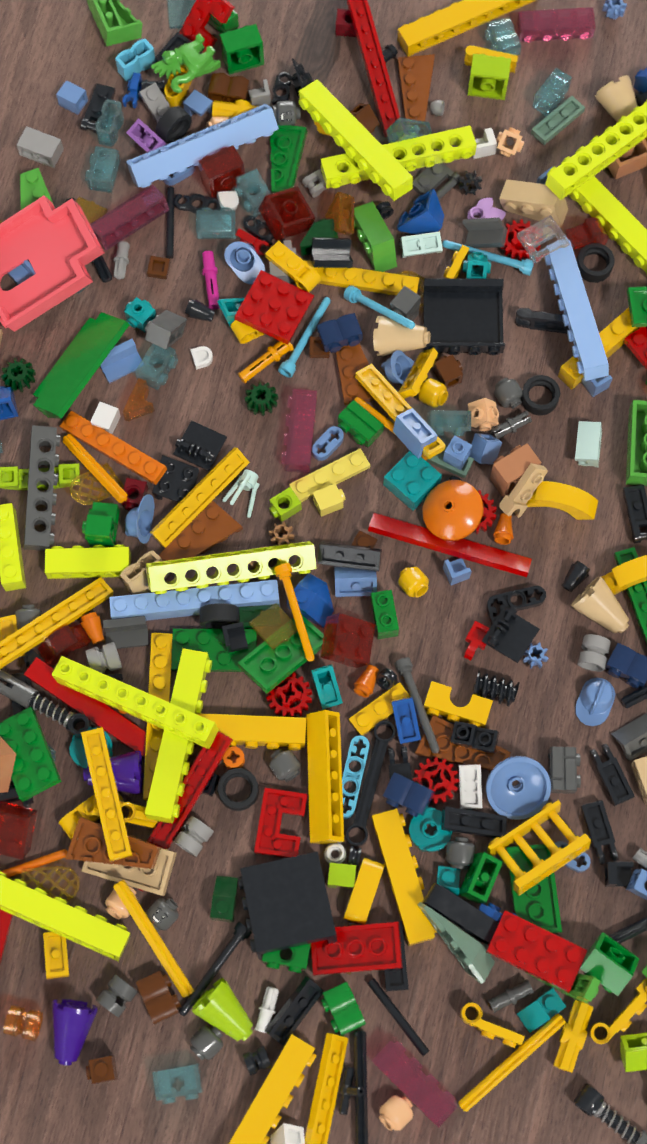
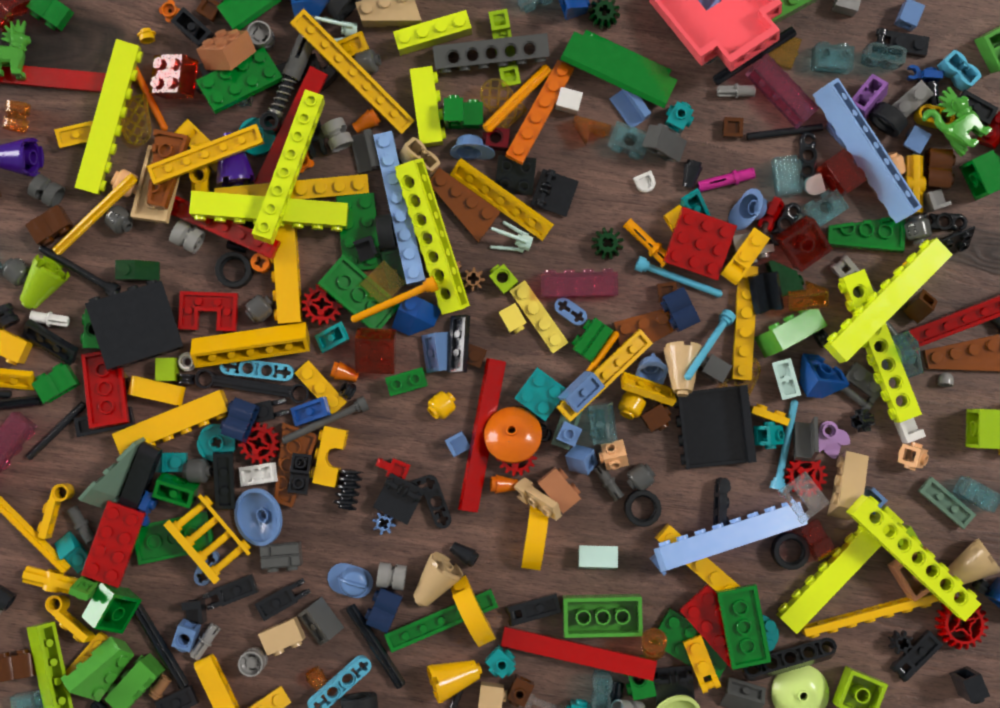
camera: 85 degrees right, 15 degrees up
(62, 643) = (347, 97): clear red brick -> none

